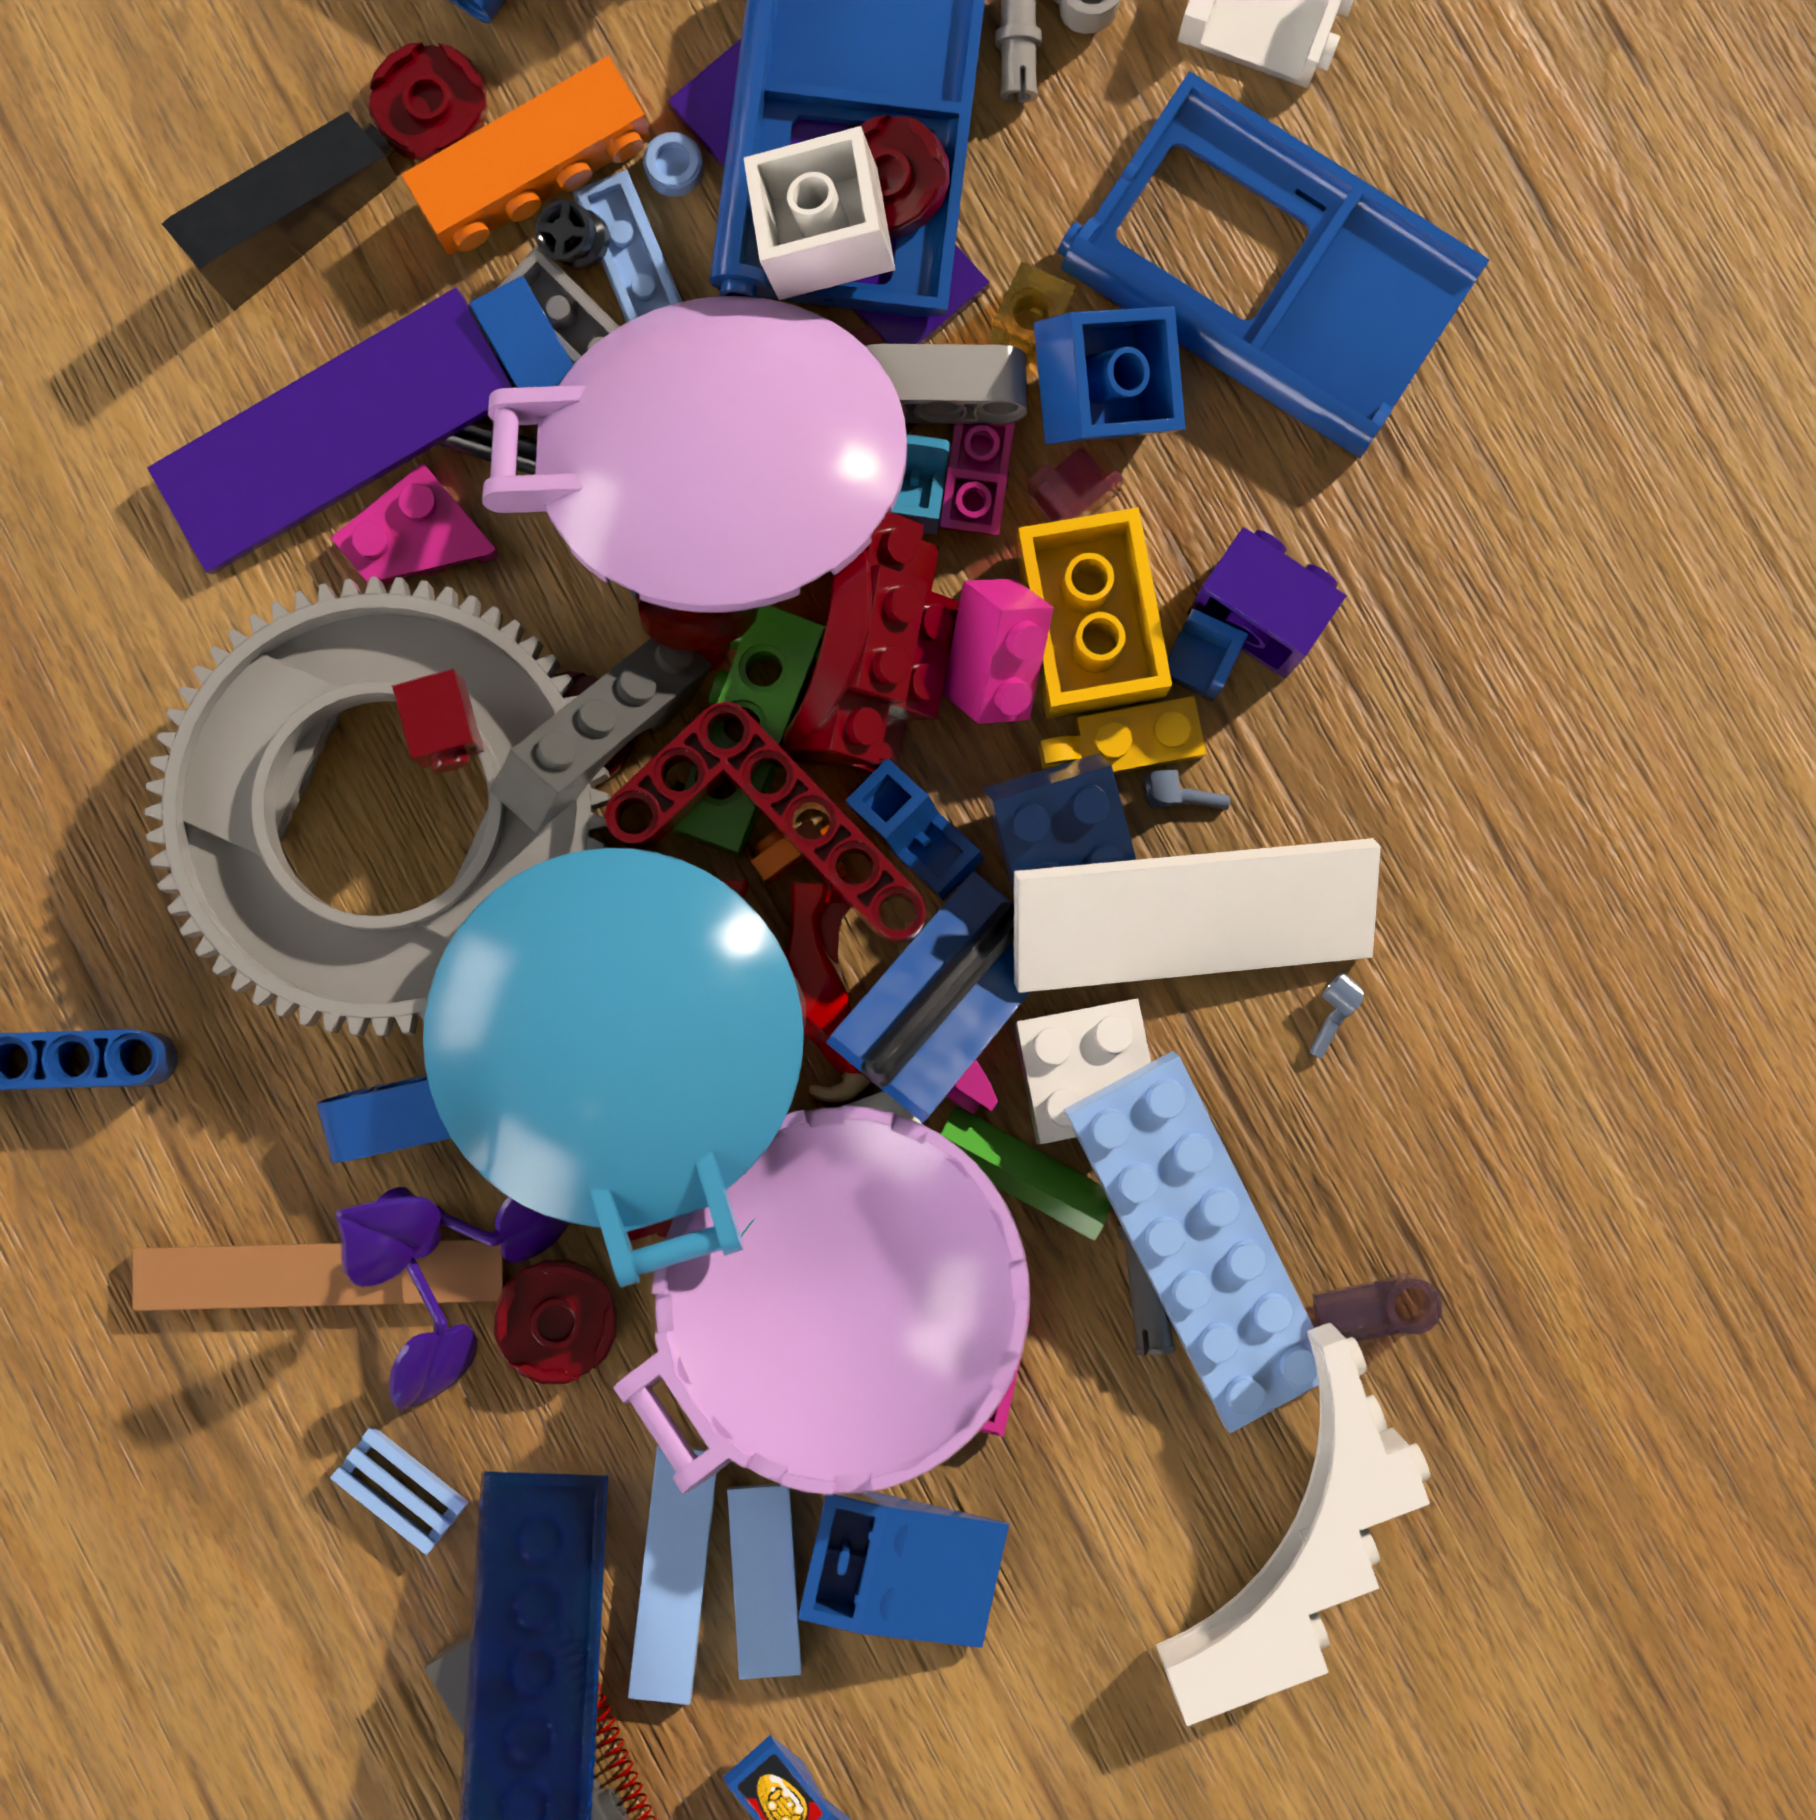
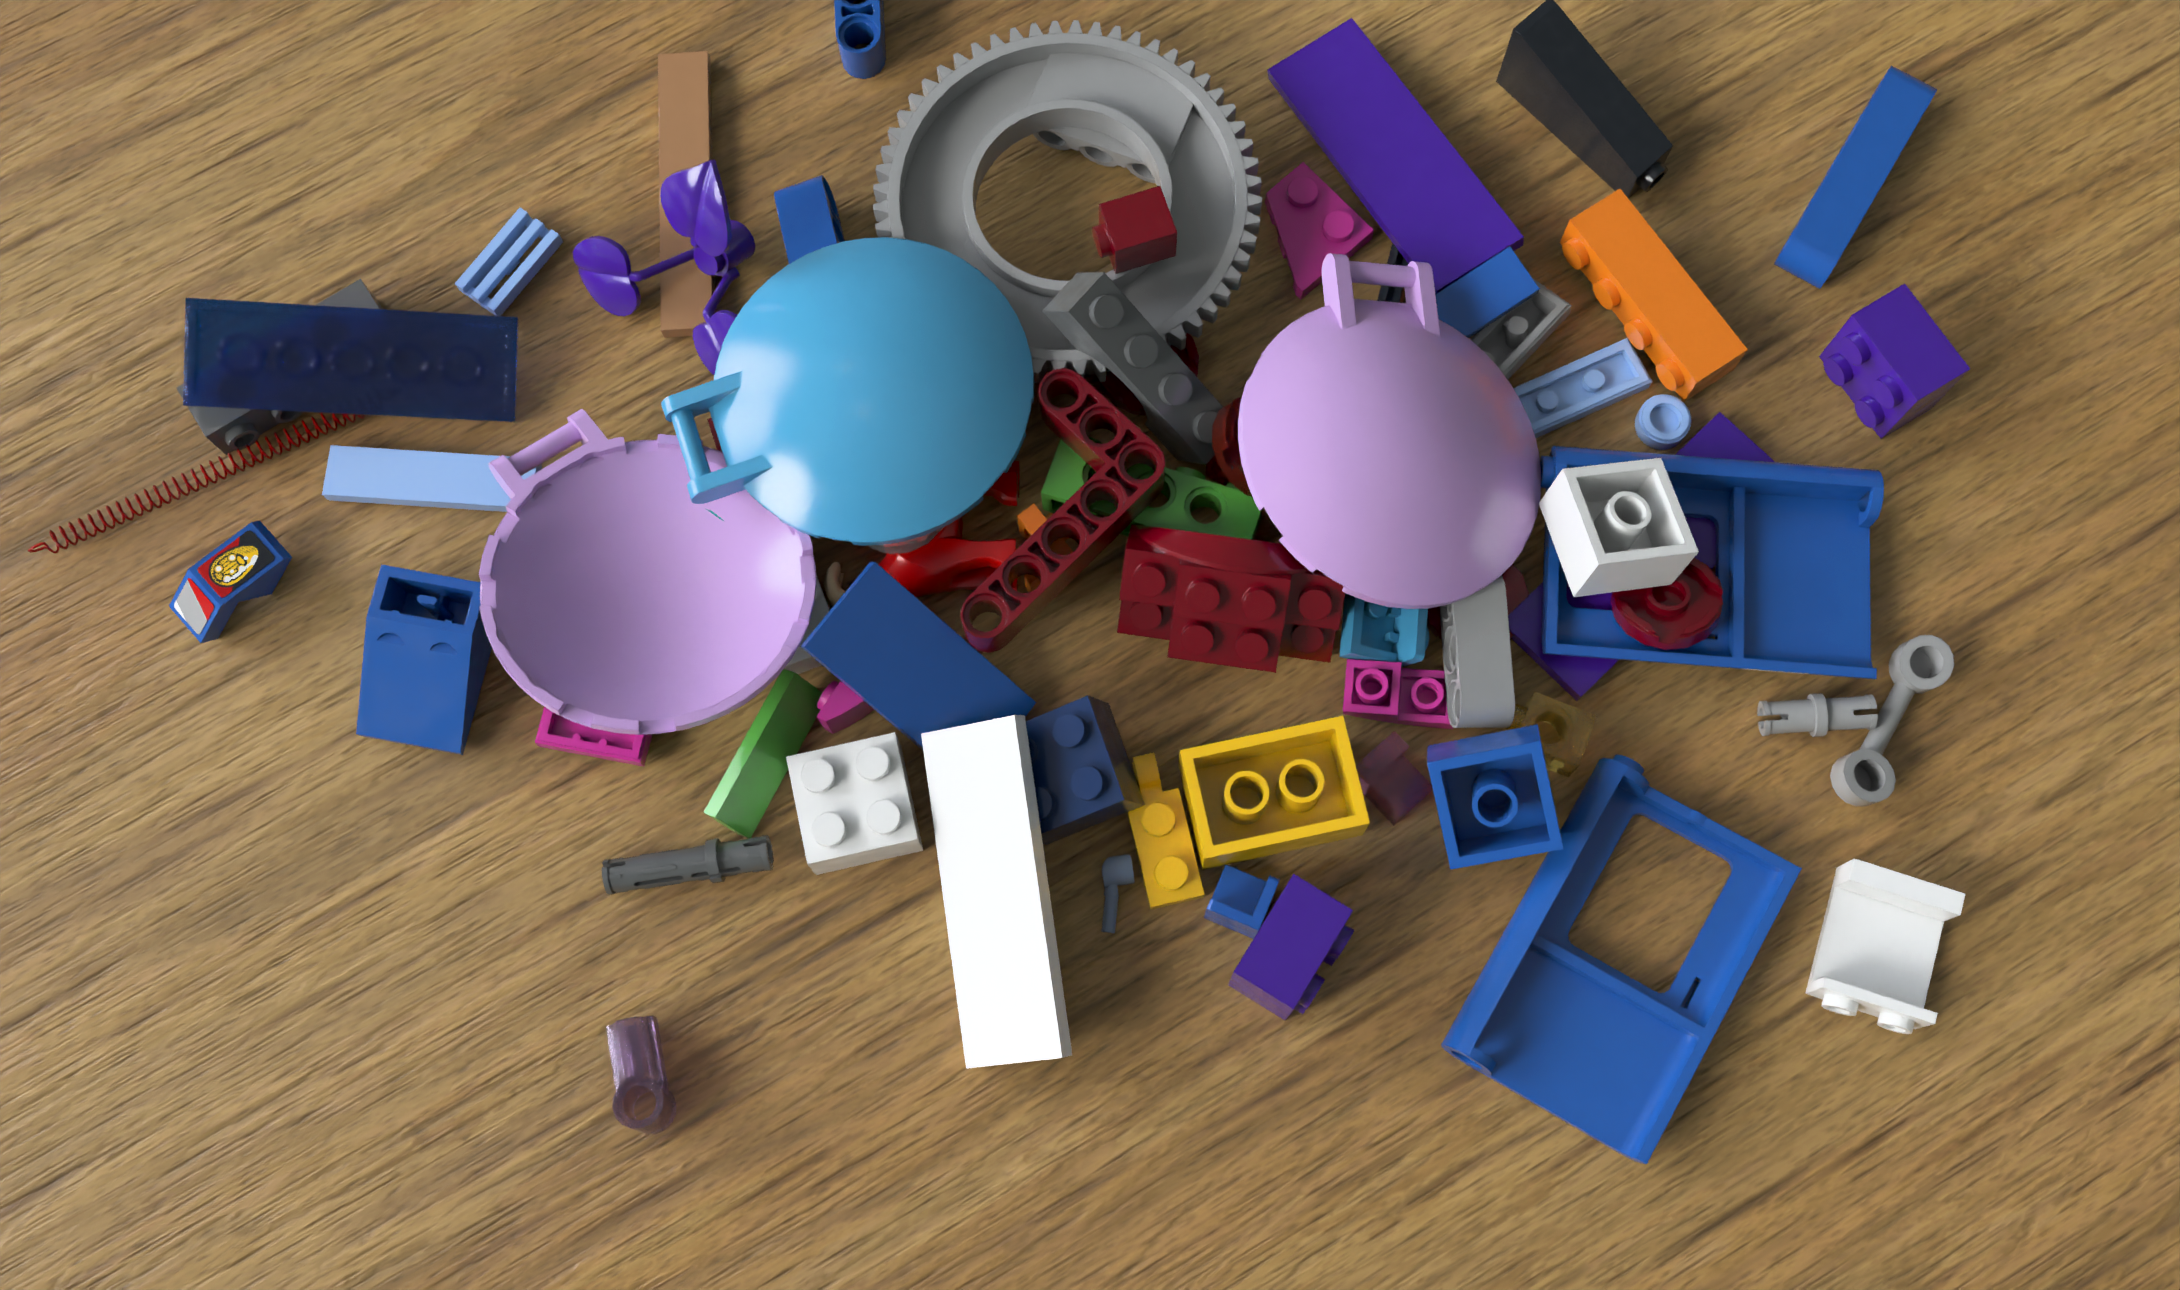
camera: 95 degrees right, 10 degrees down
(426, 99) = (1698, 218): dark red tile -> none
(555, 1321) = (640, 369): dark red tile -> none
(563, 222) = (1576, 325): black wheel -> none
(764, 1581) = (433, 548): light blue tile -> none
(914, 829) = (1071, 648): blue slope -> none
(940, 997) = (908, 656): black axle -> none
(997, 650) = (1230, 703): dark pink brick -> none
(1198, 1239) = (699, 905): light blue plate -> none
(1272, 1627) = (358, 986): white arch -> none
(1345, 998) = (930, 1042): sand blue hand -> none

